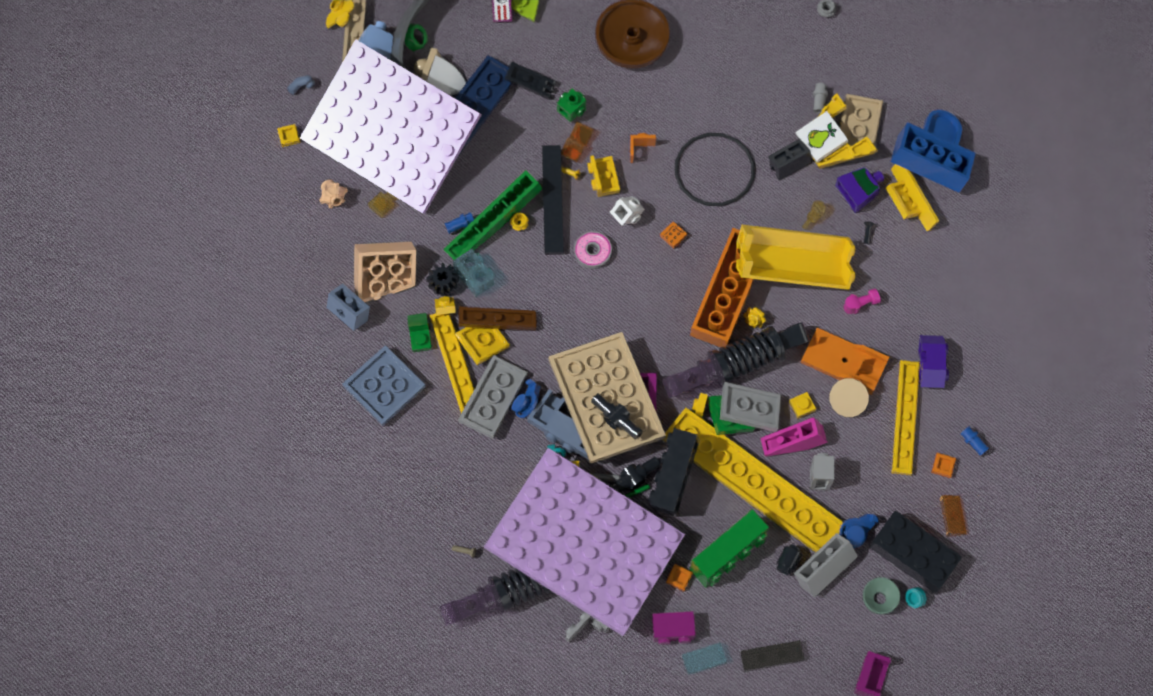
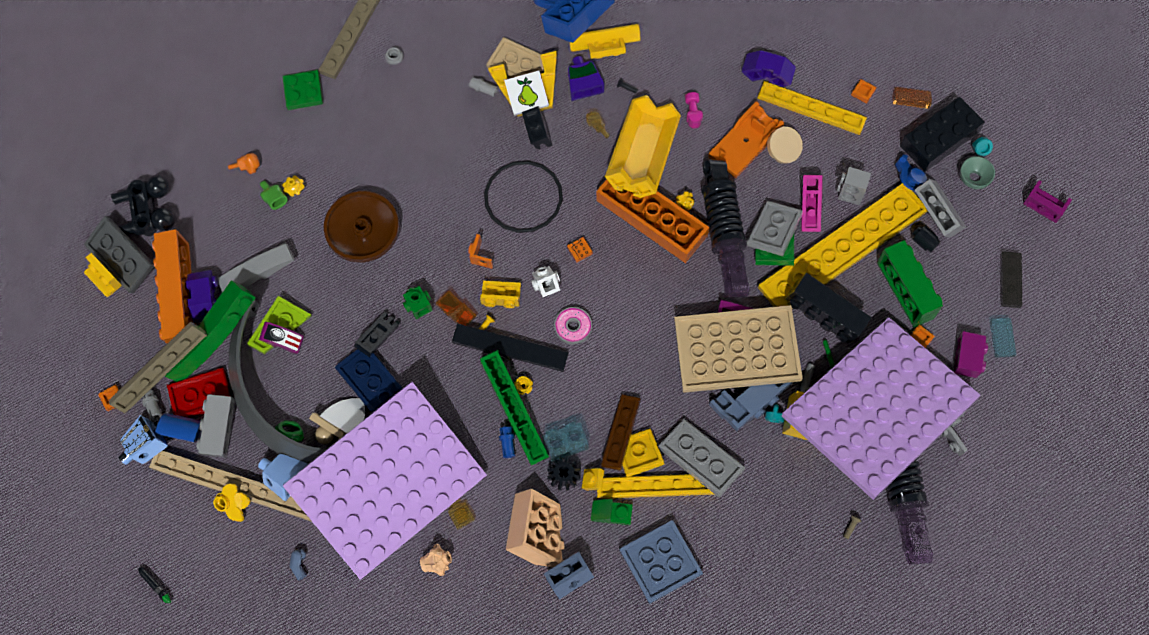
camera: 70 degrees left, 0 degrees up
(288, 135) = (352, 592): yellow tile -> none
(526, 403) = (716, 424): blue piece -> none
(617, 416) = (765, 341): black pin -> none
(634, 475) = (814, 349): black pin -> none
(699, 404) = (759, 271): yellow plate -> none
(802, 405) = (779, 187): yellow plate -> none
(973, 439) = (847, 60): blue pin -> none

